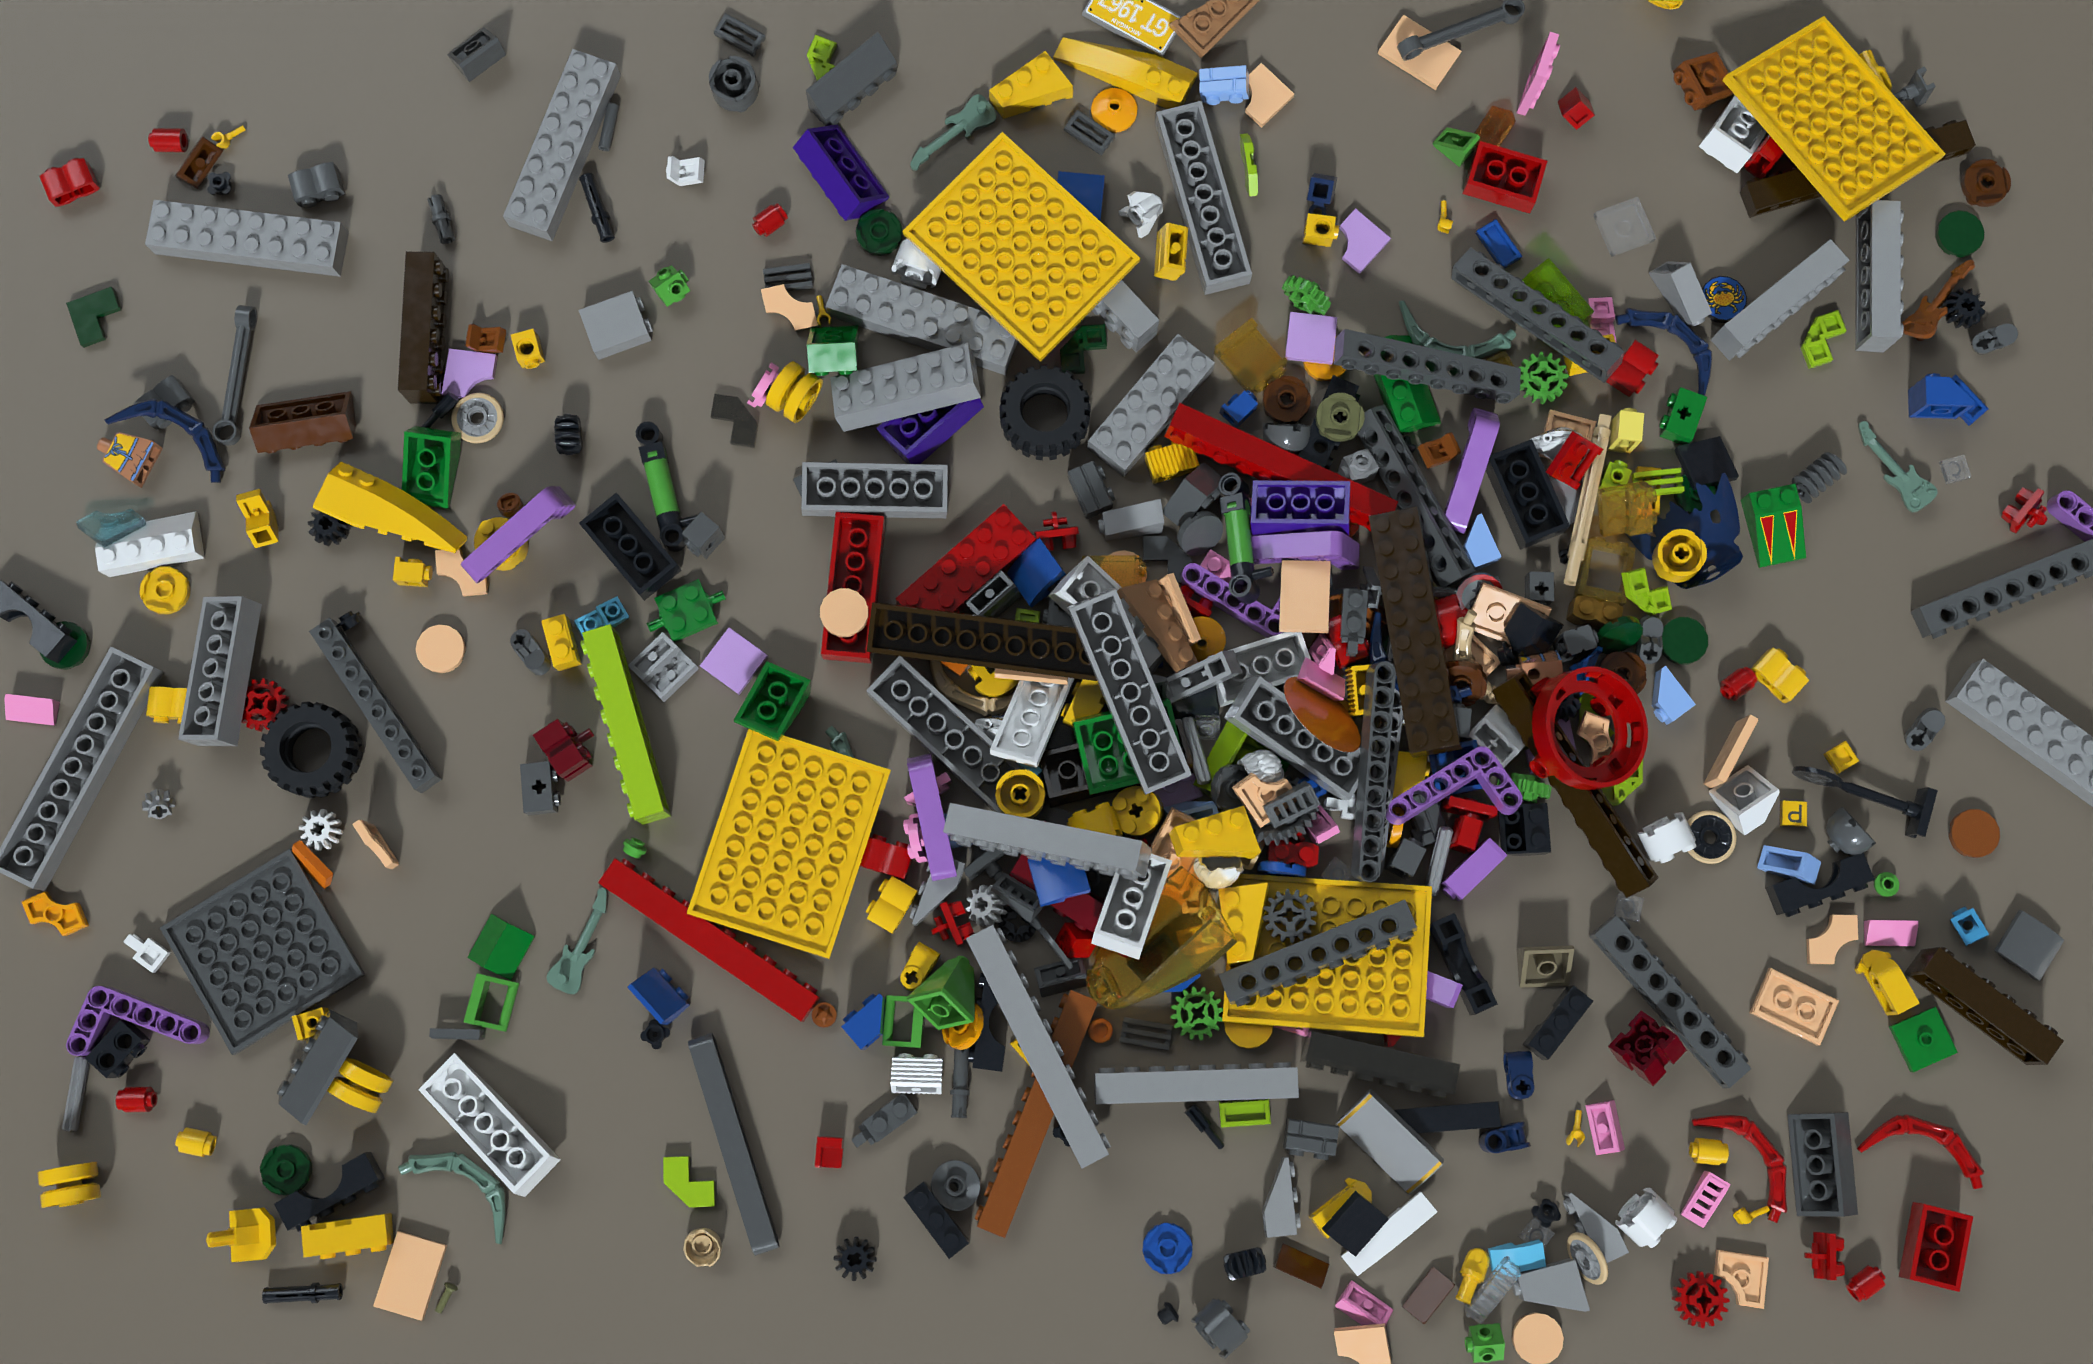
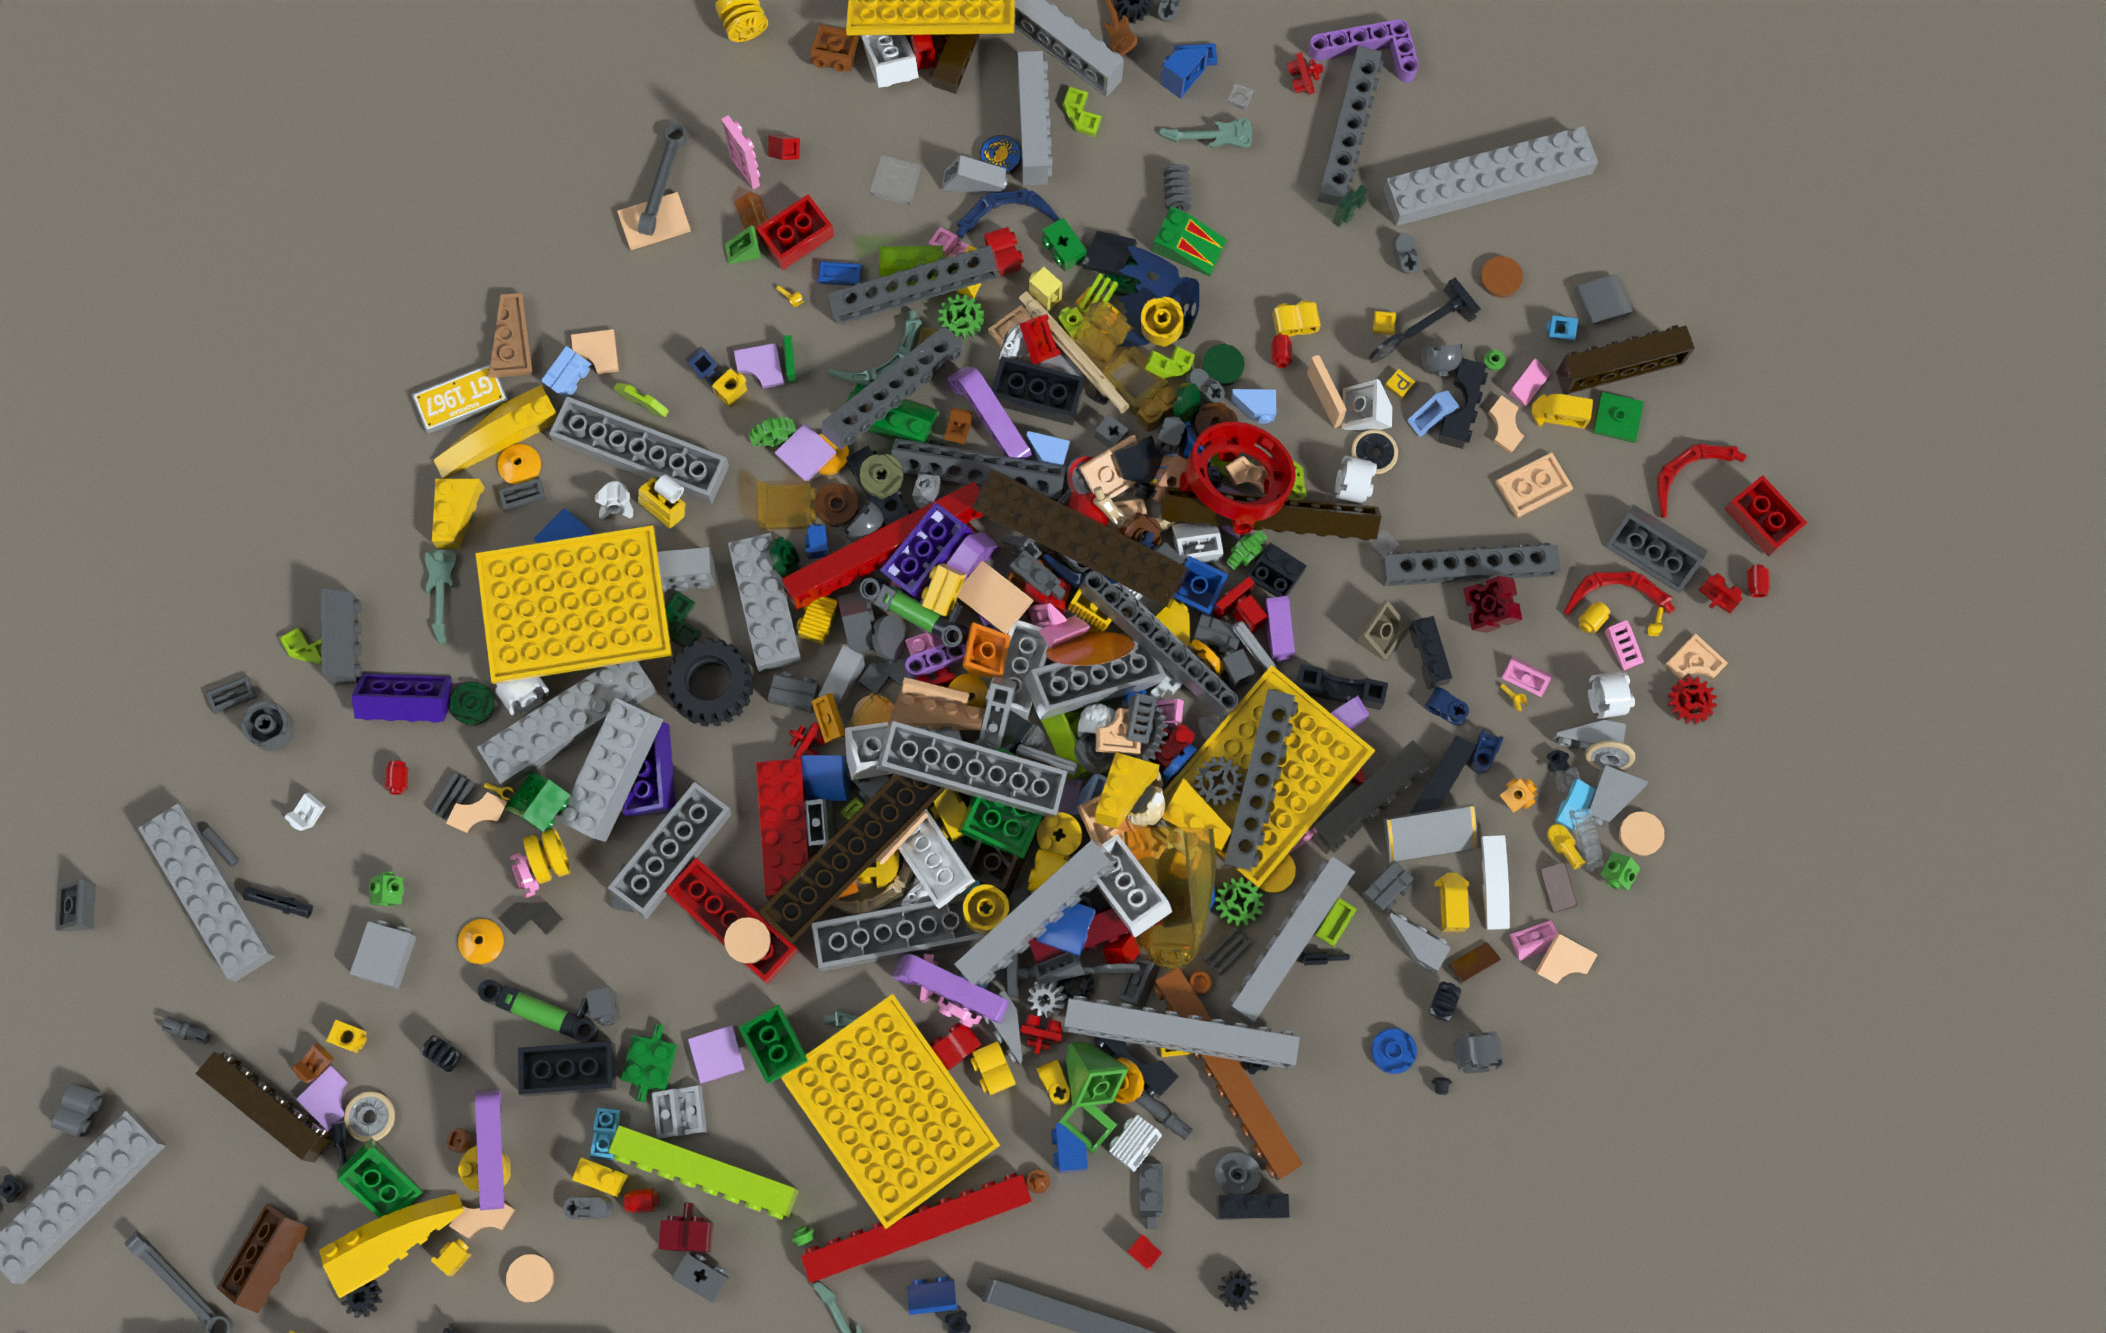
camera: 55 degrees left, 5 degrees down
(567, 691) = (641, 1200): none -> red brick
(689, 405) = (490, 947): none -> light orange dish
(1089, 535) = (828, 718): none -> light orange plate
(1185, 247) = (668, 488): none -> white gear
(1202, 390) = (783, 557): none -> dark green tile
(1249, 625) = (986, 651): none -> orange slope
(1276, 546) = (943, 589): none -> yellow brick
(1355, 1223) = (1472, 899): black tile -> none
(1385, 260) = (789, 359): none -> green tile
(1453, 782) = (1208, 594): medium lavender beam -> none
(1487, 1198) = (1512, 797): none -> light orange brick
(1929, 642) = (1348, 205): none -> clear green plate

